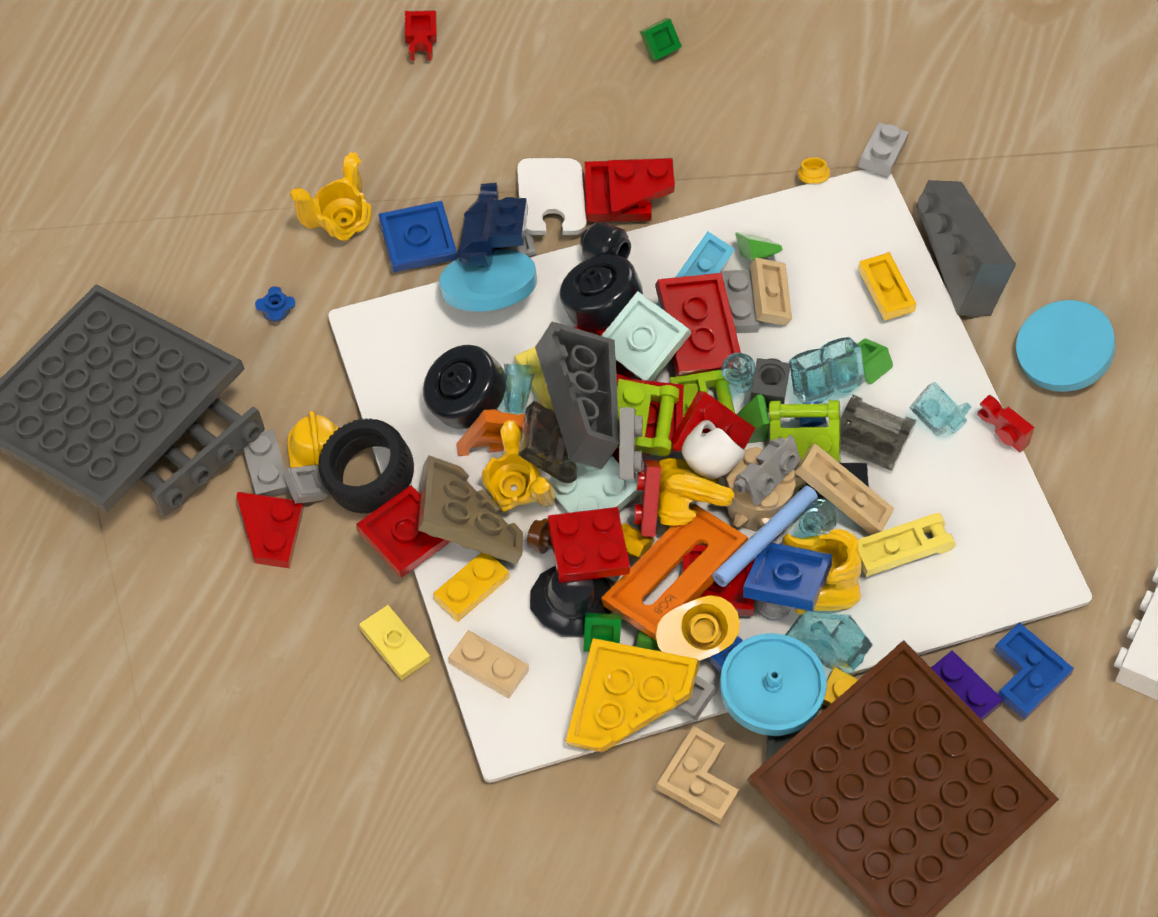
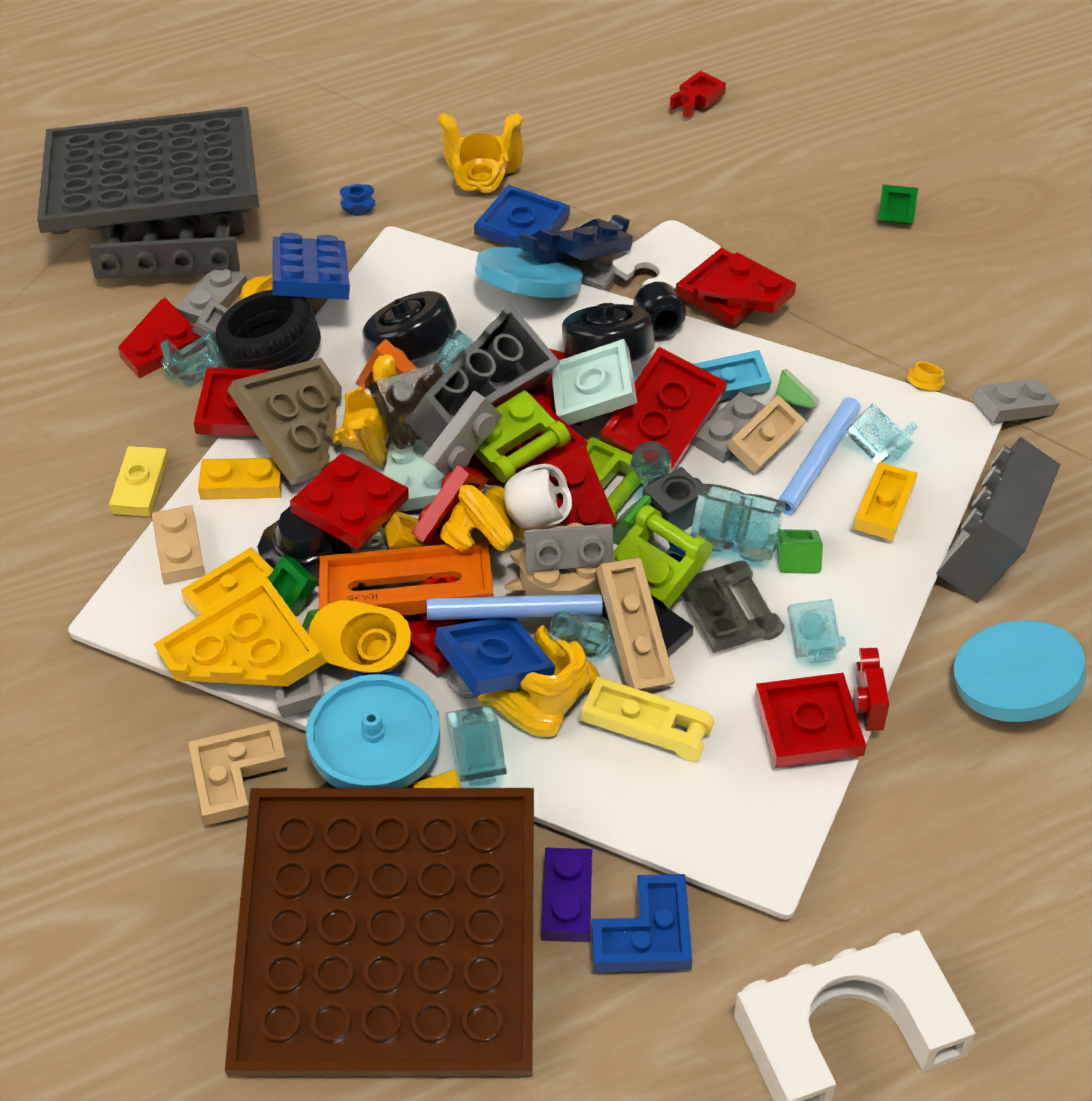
camera: 45 degrees right, 10 degrees down
(324, 523) = (191, 361): none -> clear light blue bracket
(334, 390) = (309, 267): none -> blue plate
(562, 664) = (225, 581): none -> yellow plate
(813, 282) = (819, 454): none -> light blue piece
(839, 240) = (879, 435): none -> clear light blue bracket
(991, 471) = (809, 719): none -> red plate

